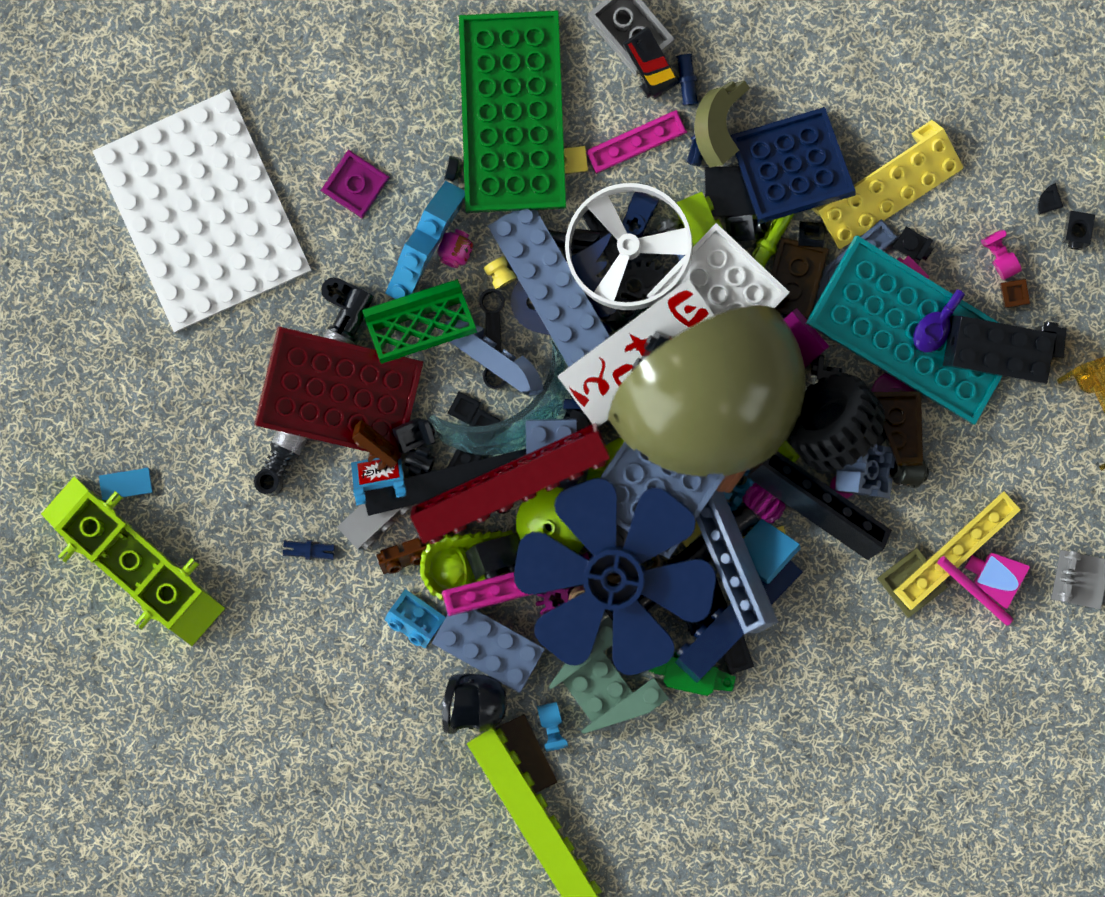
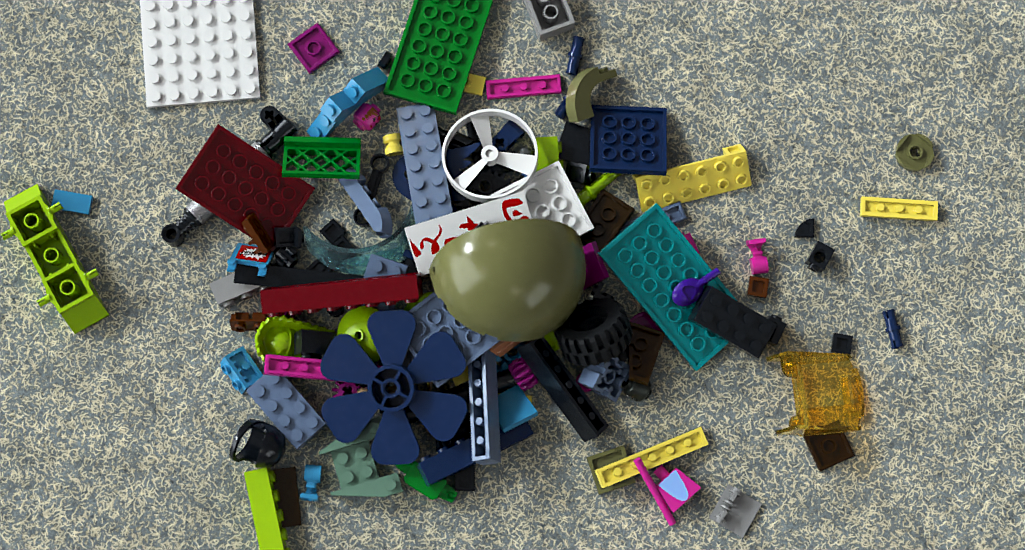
camera: 15 degrees right, 5 degrees down
(308, 550) = (184, 294): dark blue pin -> none
(651, 64) = (552, 34): black door -> none
(811, 234) = (625, 194): black tile -> none
(914, 245) = (696, 227): black bracket -> none

